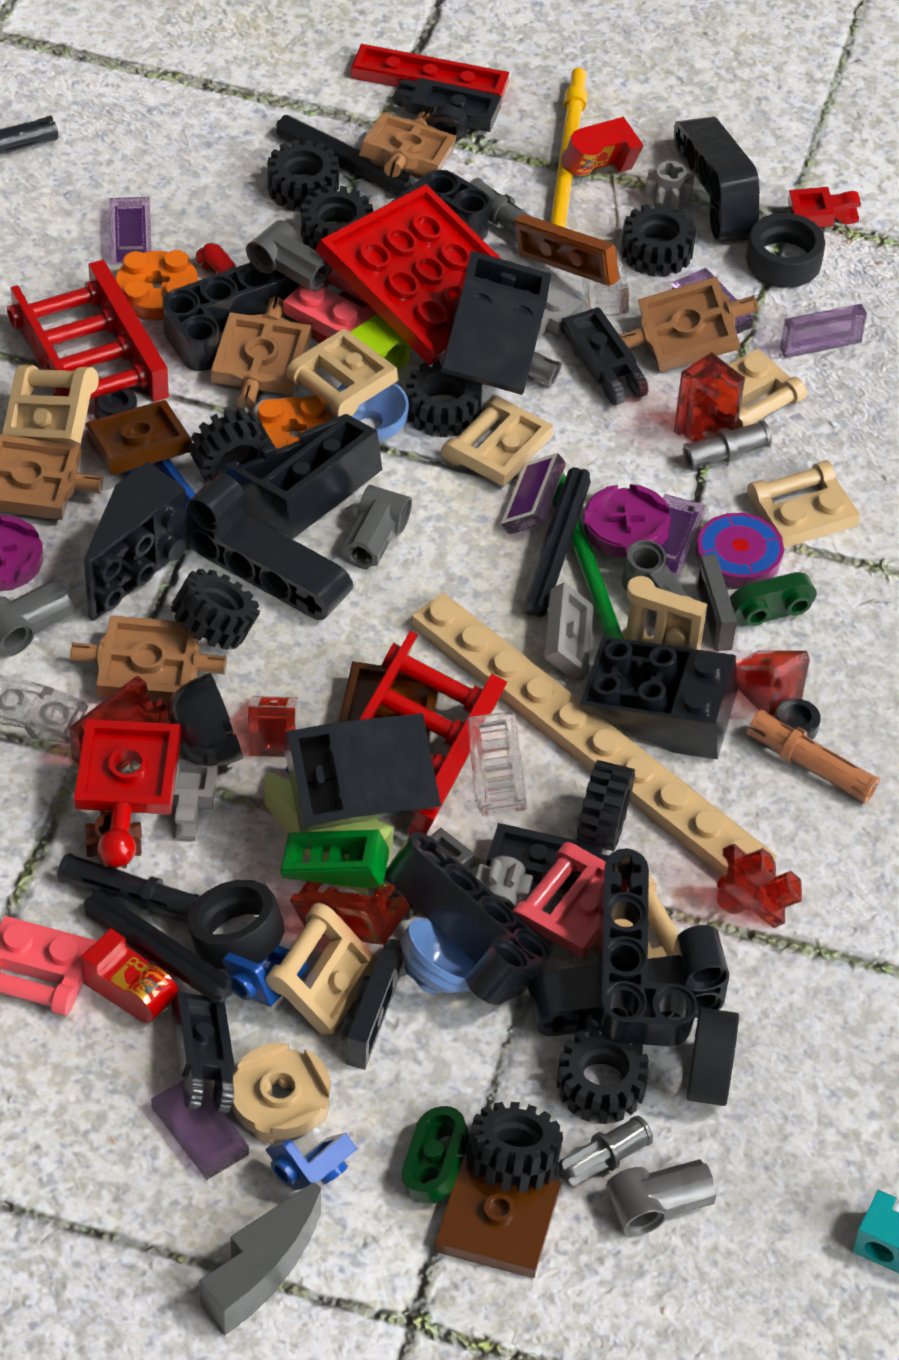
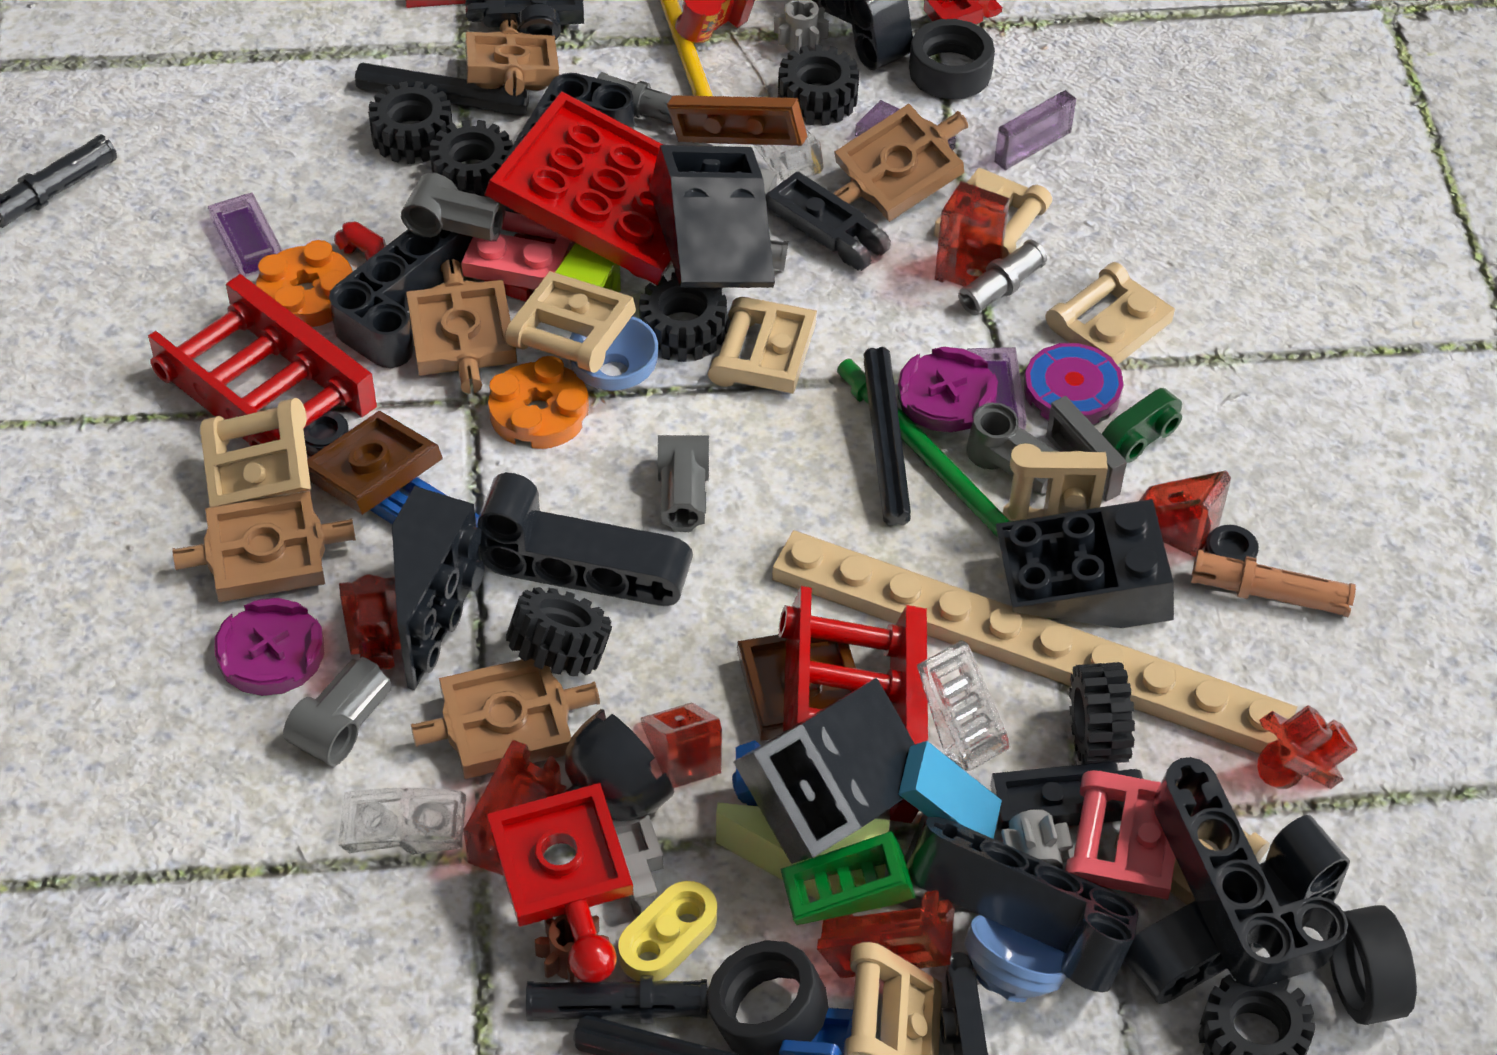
camera: 20 degrees left, 0 degrees up
(71, 547) = (371, 618): none -> clear red hips
(189, 853) = (663, 932): none -> light yellow plate
(212, 445) = (486, 441): black tyre -> none
(309, 477) = (586, 444): black wedge -> none
(443, 817) = (947, 791): none -> dark azure tile
(533, 493) = (833, 390): tile -> none
(569, 631) = (950, 530): light grey plate -> none

